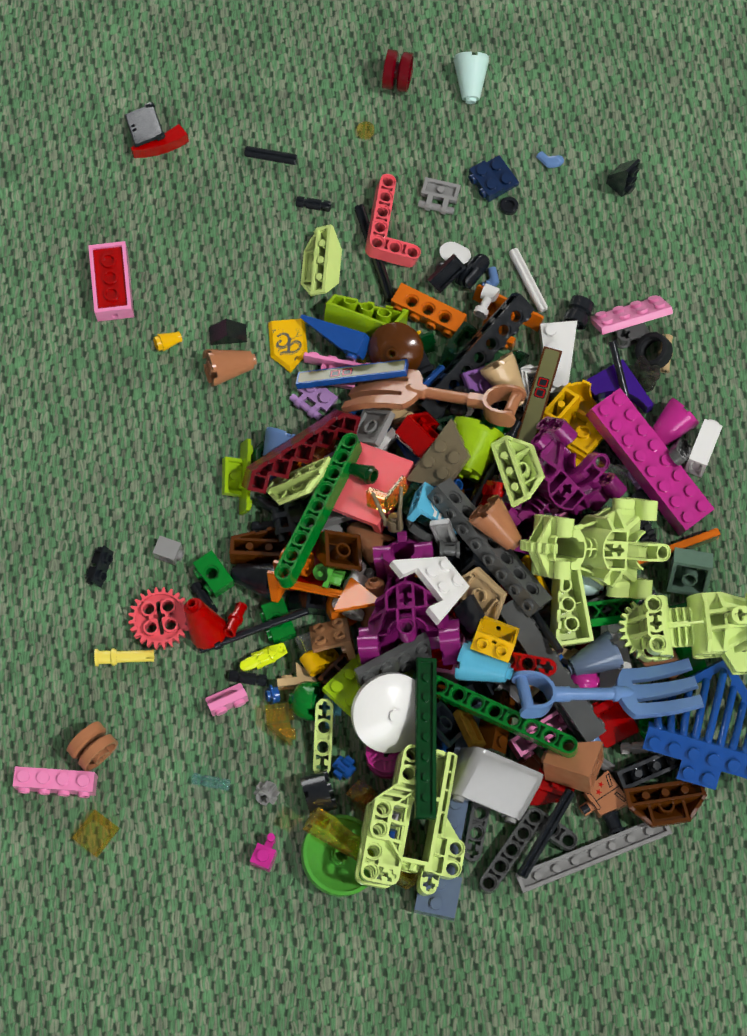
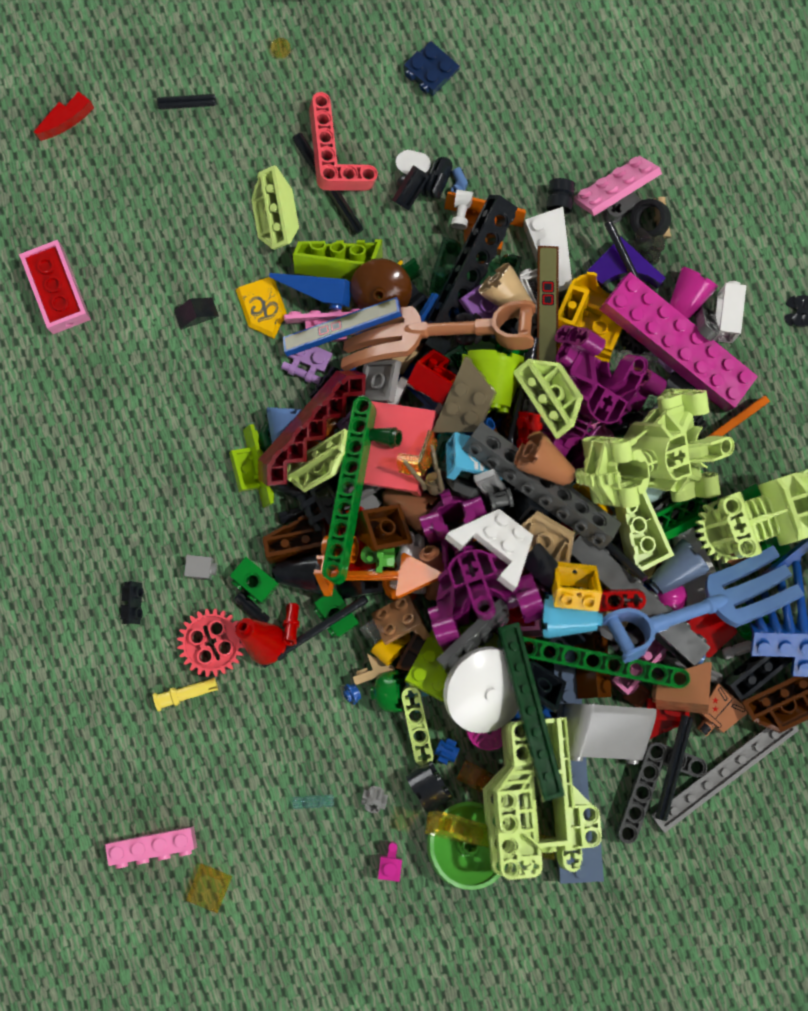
camera: 15 degrees left, 10 degrees up
(92, 746) = (179, 800): nougat wheel -> none
(144, 125) = (41, 102): door -> none
(167, 340) = (132, 337): yellow cone -> none
(226, 699) = (300, 714): bright pink bracket -> none
(227, 364) = (205, 348): nougat cone -> none
(247, 678) = (321, 681): black axle -> none
(263, 657) = (331, 656): neon yellow hinge -> none
(279, 721) = (367, 721): clear yellow slope -> none
(312, 203) = (247, 144): black axle -> none
(440, 310) = (414, 230): orange brick -> none
(441, 191) = (378, 96): light grey plate -> none
(469, 729) = (568, 682): pearl gold tile -> none
(476, 823) = (604, 772): dark grey beam -> none
(508, 205) = (455, 95): black tile -> none
(528, 280) = (497, 172): white axle -> none
(551, 161) = (487, 34): medium blue arm -> none
(613, 823) = (737, 736): black bush -> none
(623, 177) = (571, 33): black slope -> none
(689, 571) = (752, 451): sand green brick -> none

